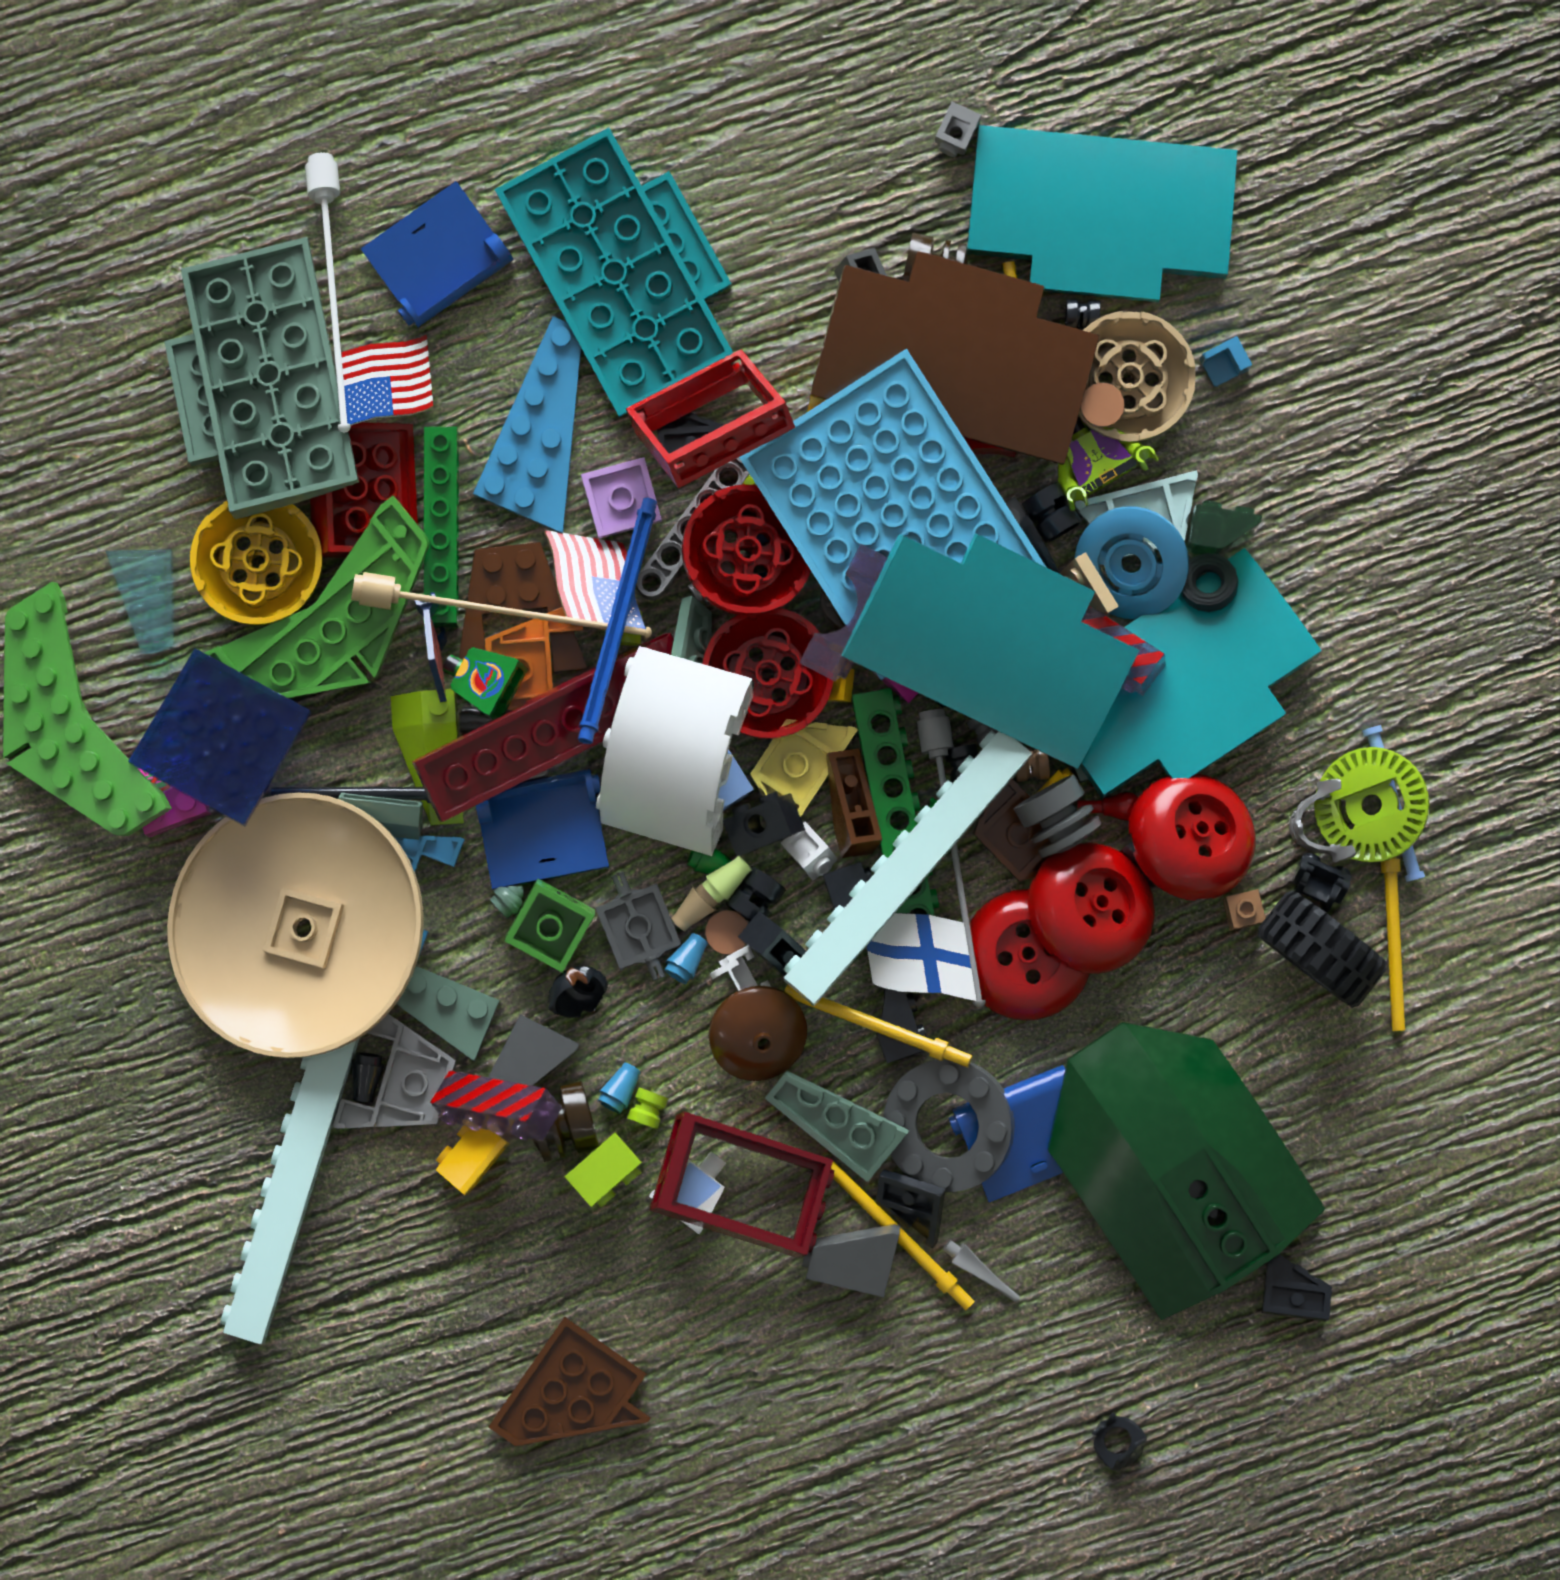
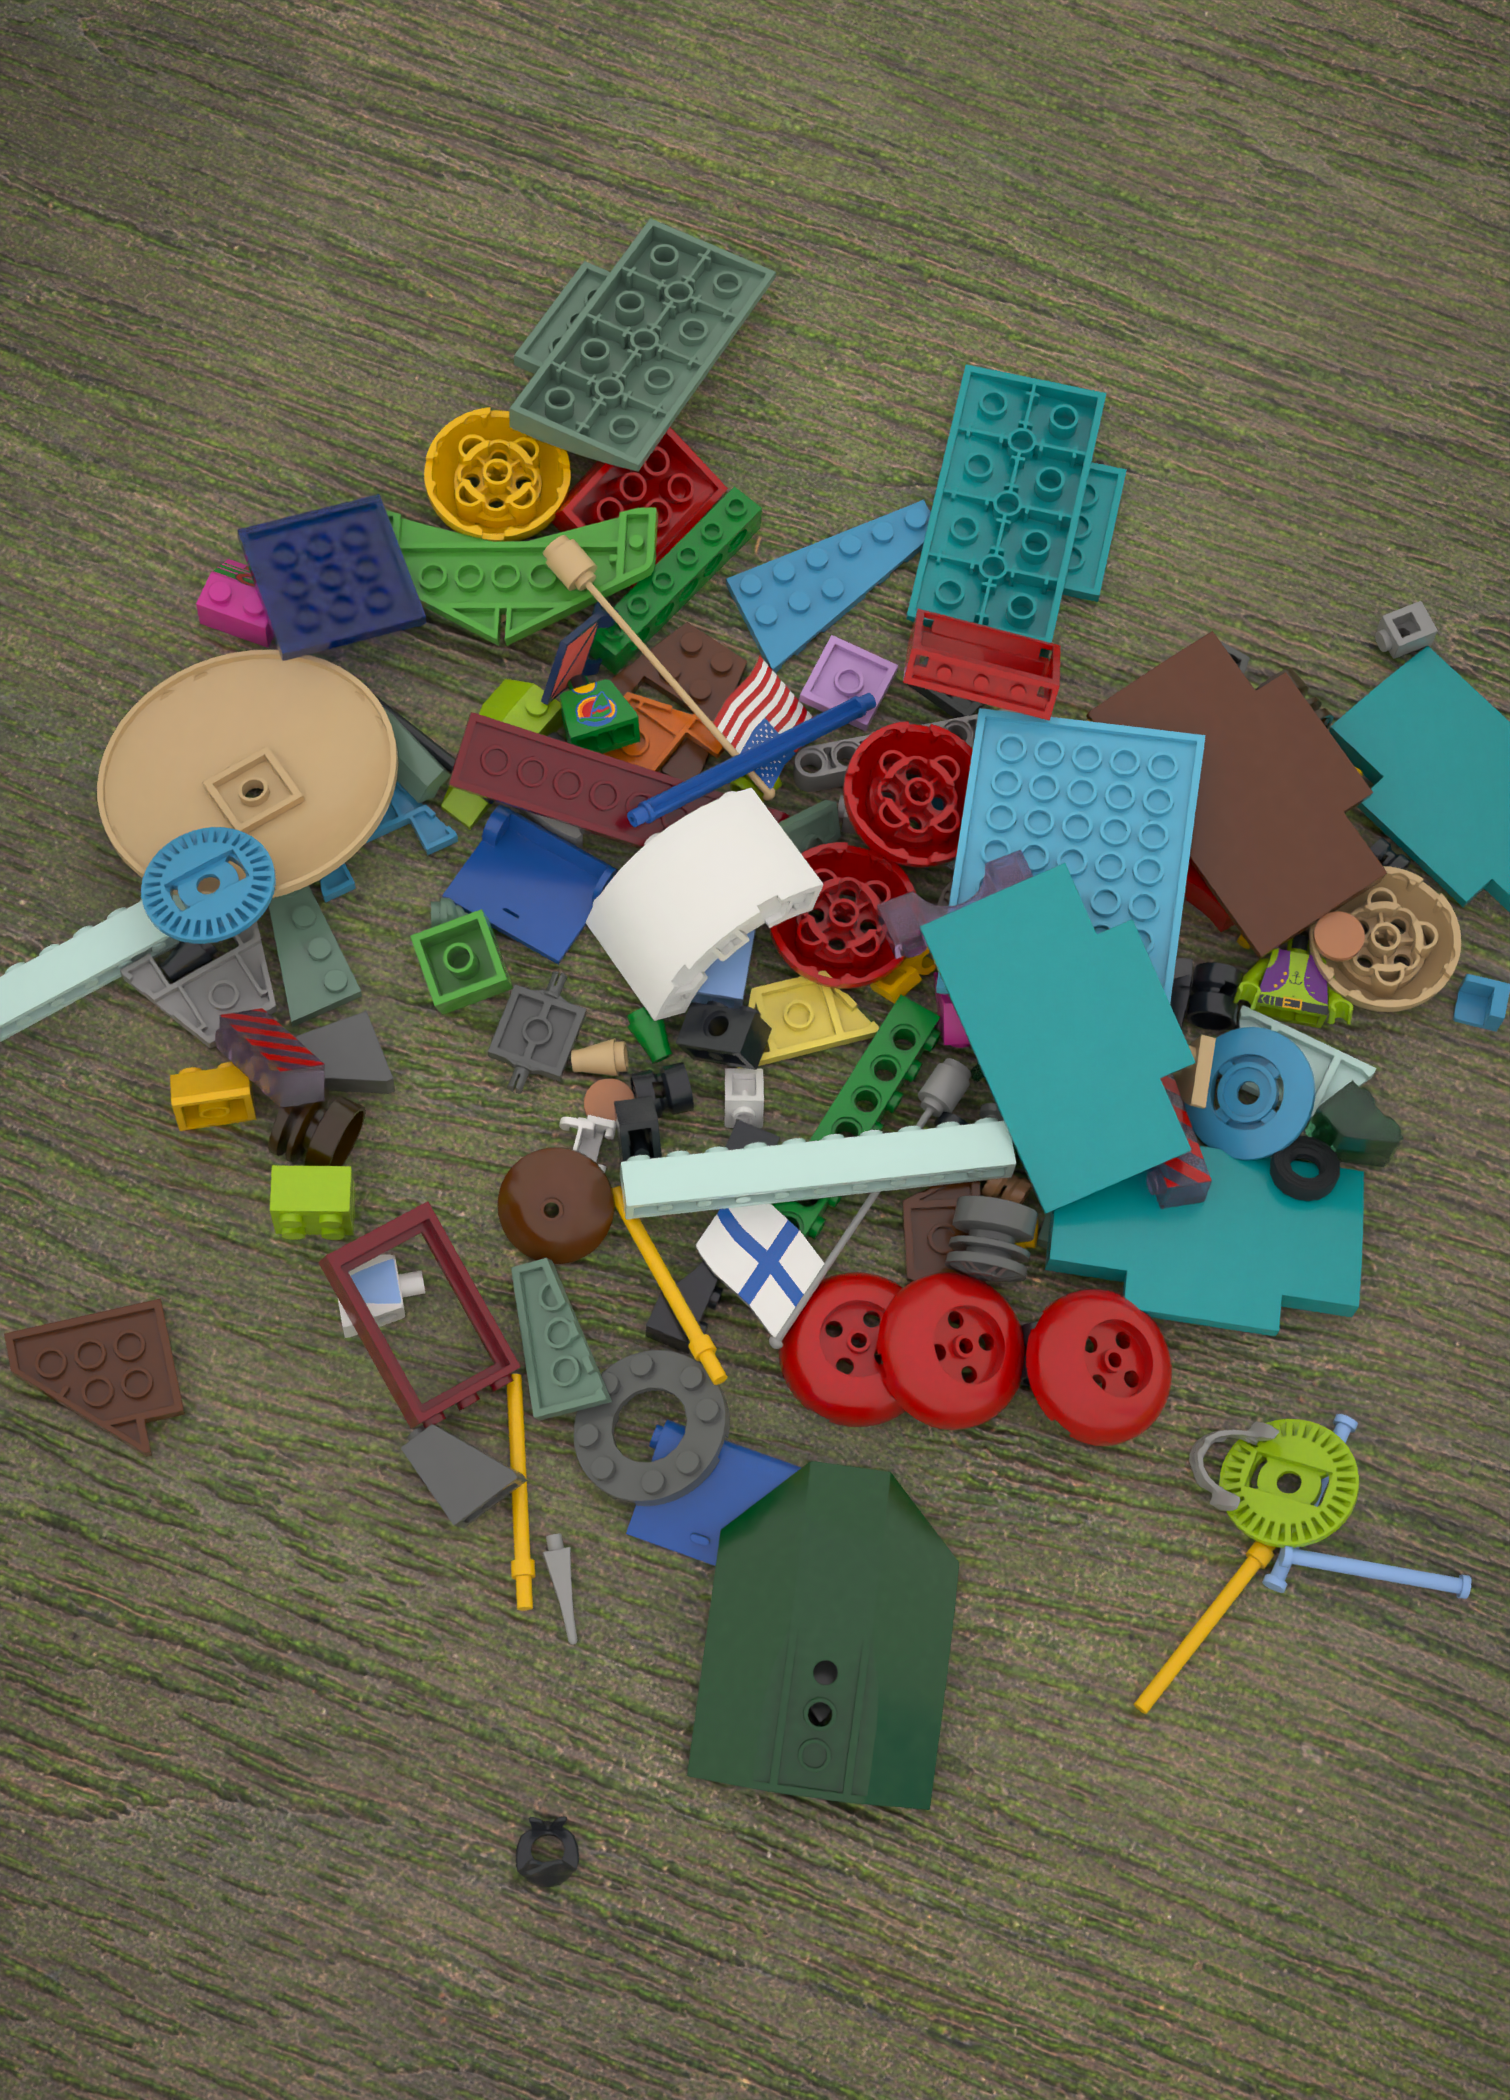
camera: 40 degrees right, 15 degrees down
(48, 714) = (202, 468): bright green wing -> none
(147, 593) = (383, 438): clear light blue wing -> none
(321, 1030) = (200, 856): none -> dark azure piece
(377, 377) = (727, 413): flag -> none
(436, 255) = (870, 378): blue door -> none
(577, 991) = (433, 1037): black hair -> none
(619, 1089) = (392, 1151): dark azure cone -> none
(648, 1108) = (398, 1189): lime wheel -> none
(686, 959) = (552, 1094): dark azure cone -> none
(726, 879) = (649, 1052): yellowish green cone -> none
(852, 805) = (817, 1086): reddish brown slope -> none
(912, 1203) = (557, 1471): black wing -> none
(1116, 806) = (1046, 1285): red piece -> none
(1244, 910) = (1089, 1474): medium nougat brick -> none
(1294, 1292) = (833, 1858): black wing -> none
(1321, 880) = (1182, 1510): black piece -> none
(1322, 948) = (1132, 1557): black tyre -> none
(1529, 776) = (1460, 1586): none -> light blue bar

